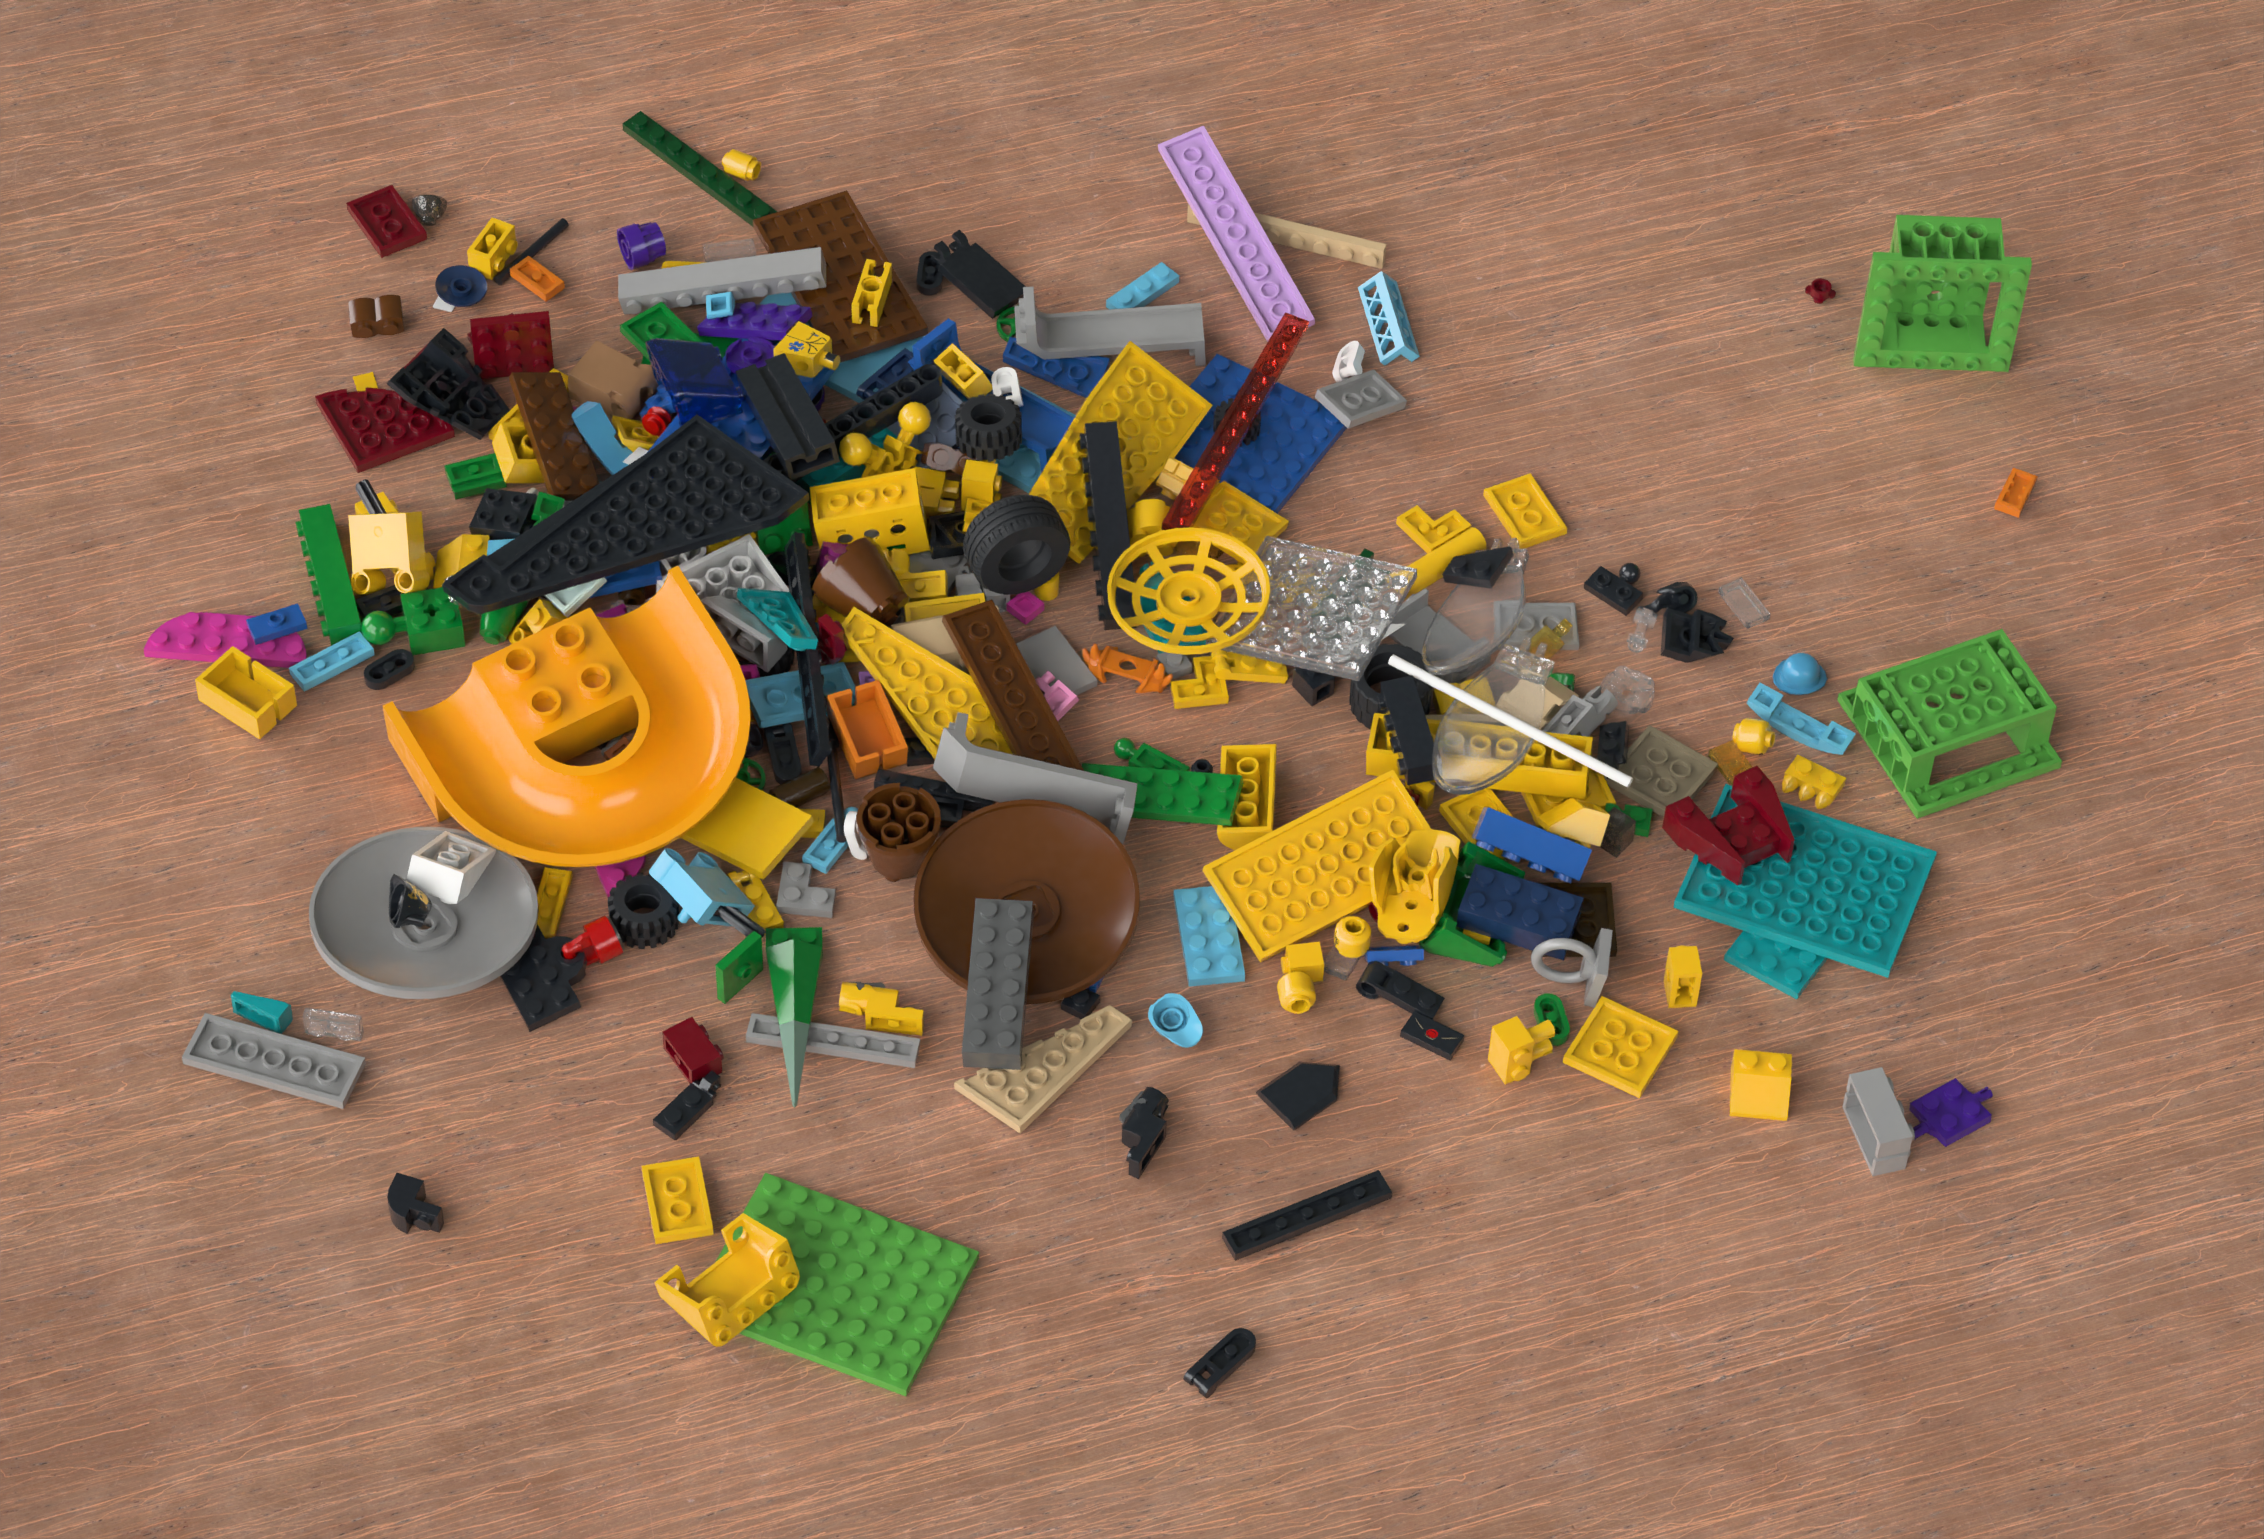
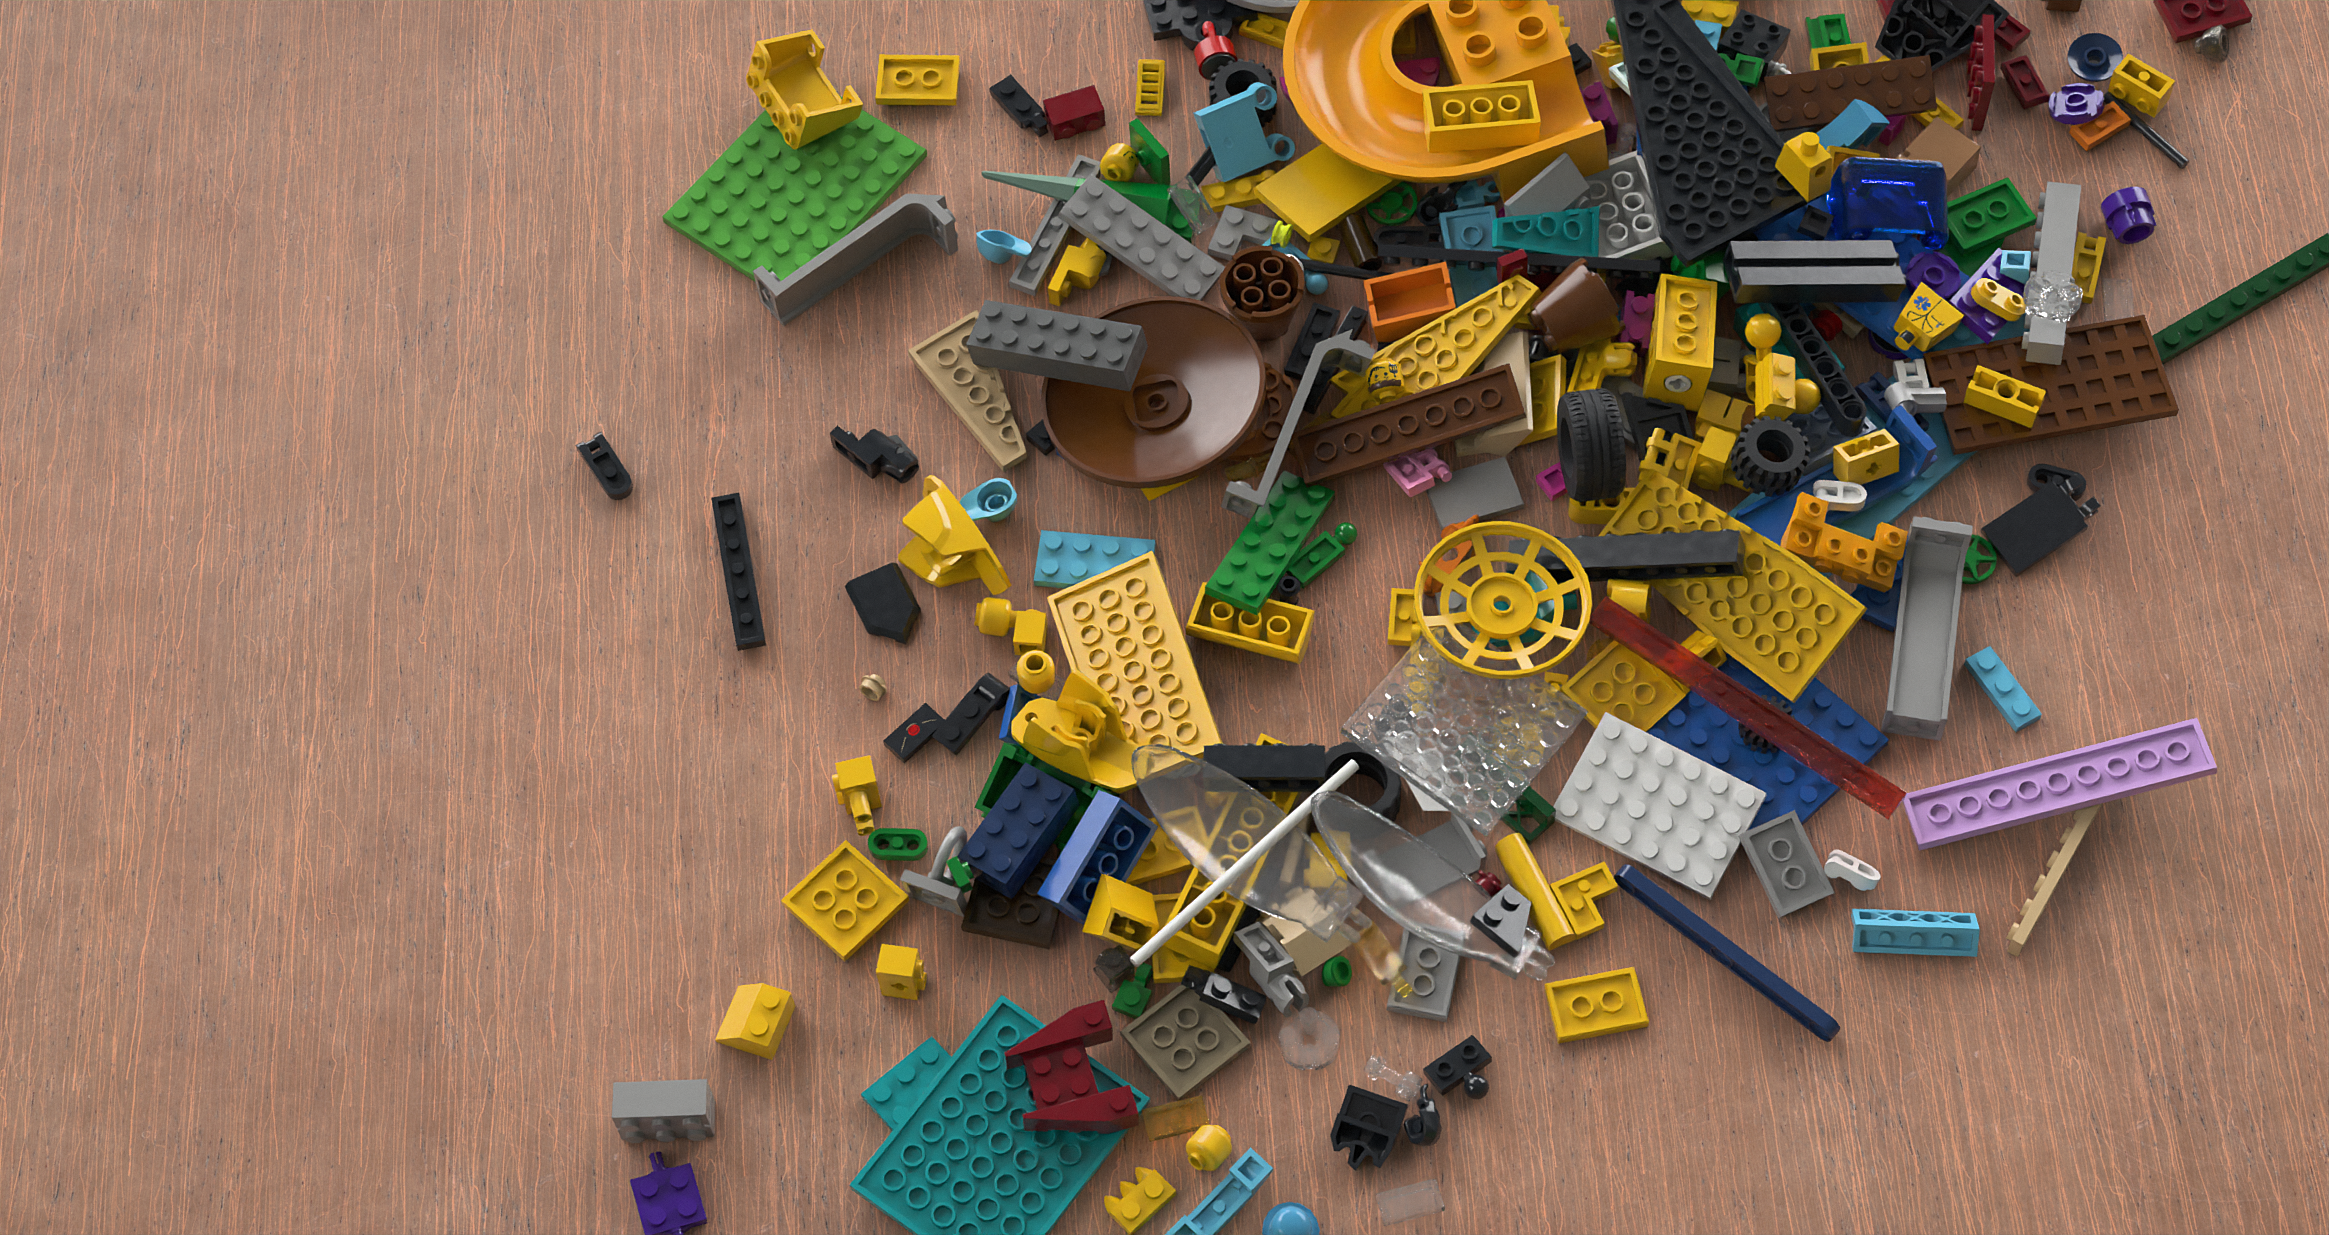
camera: 110 degrees right, 10 degrees up
(517, 293) = (2076, 104): none -> dark purple tile
(636, 1007) = (1150, 71): none -> yellow slope
(666, 676) = (1481, 116): none -> yellow slope
(685, 417) = (1806, 165): none -> yellow torso
(729, 425) = (1815, 223): none -> black plate
(741, 165) = (2246, 330): yellow brick -> none
(751, 996) = (1119, 163): none -> yellow head
(770, 304) = (1998, 299): none -> yellow plate
(773, 270) = (2052, 308): none -> clear plate
(789, 924) = (1193, 205): none -> clear tile
(812, 842) = (1281, 234): none -> neon yellow bush
(845, 956) = (1140, 241): none -> light grey plate
(865, 364) = (1917, 368): none -> white plate
(874, 1075) = (1000, 246): none -> medium azure piece
(890, 351) = (1916, 399): none -> light grey piece
(918, 428) = (1775, 387): none -> yellow brick
(923, 1191) = (855, 252): none -> light grey panel
(976, 724) = (1384, 379): none -> yellow head
(1064, 379) = (1840, 551): none -> light orange bracket
(1227, 1037) = (948, 543): none -> yellow piece
(1332, 486) = (1658, 805): none -> white plate
(1397, 1076) = (873, 687): none -> tan plate
(1443, 590) = (1489, 883): none -> dark red plate
(1450, 432) = (1727, 953): none -> dark blue beam
(1584, 933) = (960, 873): none -> green plate

